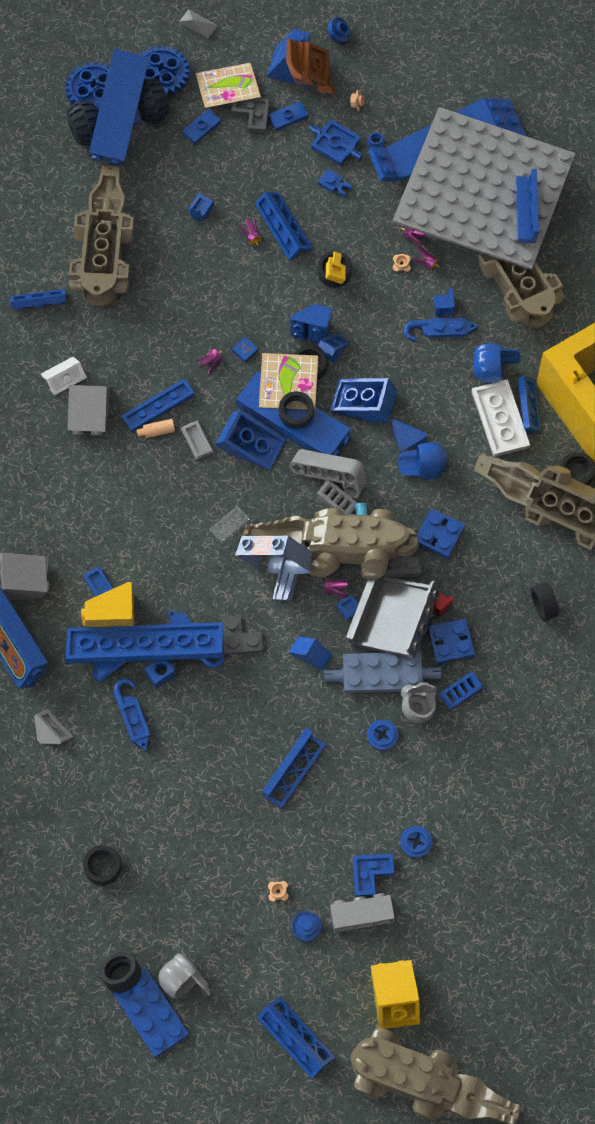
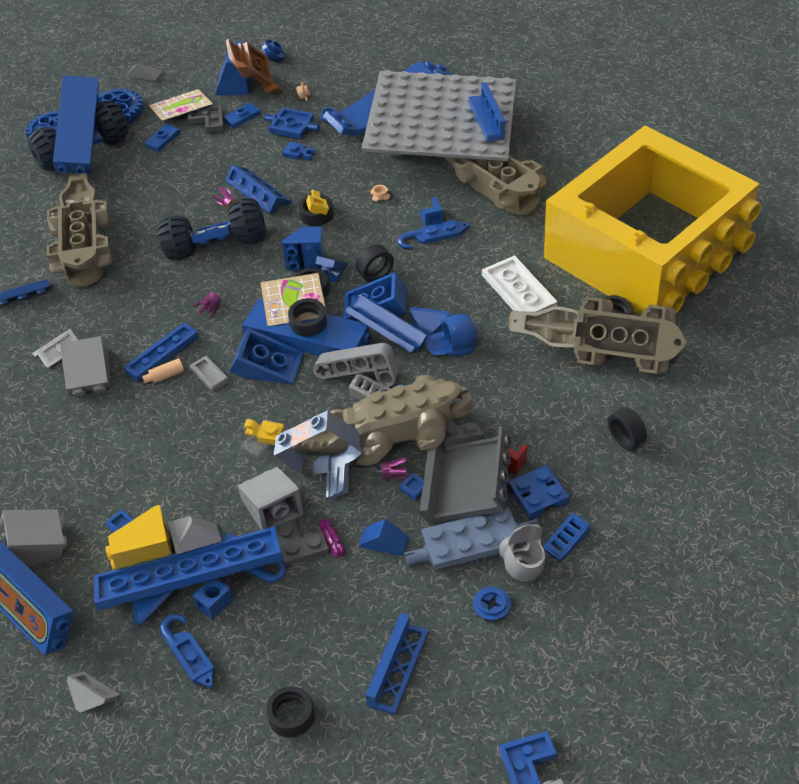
camera: 10 degrees left, 20 degrees down
(155, 612) = (193, 533): none -> light grey slope
(200, 207) = (173, 191): blue plate -> none
(202, 771) = (294, 728): none -> black tyre
(225, 590) = (271, 498): none -> light grey slope
(236, 523) = (266, 432): none -> yellow plate
(245, 349) = (242, 289): blue tile -> none
(261, 272) = (180, 240): none -> black plate
(268, 639) = (332, 538): none -> magenta axle
(368, 434) = (388, 324): none -> fence
(373, 357) = (368, 256): none -> black tyre
(412, 234) = (380, 169): flat silver piece -> none
(412, 833) = (579, 705): blue gear -> none
(431, 260) = (406, 185): flat silver piece -> none
(442, 536) = (492, 396): blue brick -> none
(490, 359) = (494, 239): blue piece -> none
(529, 404) = (544, 271): blue plate -> none

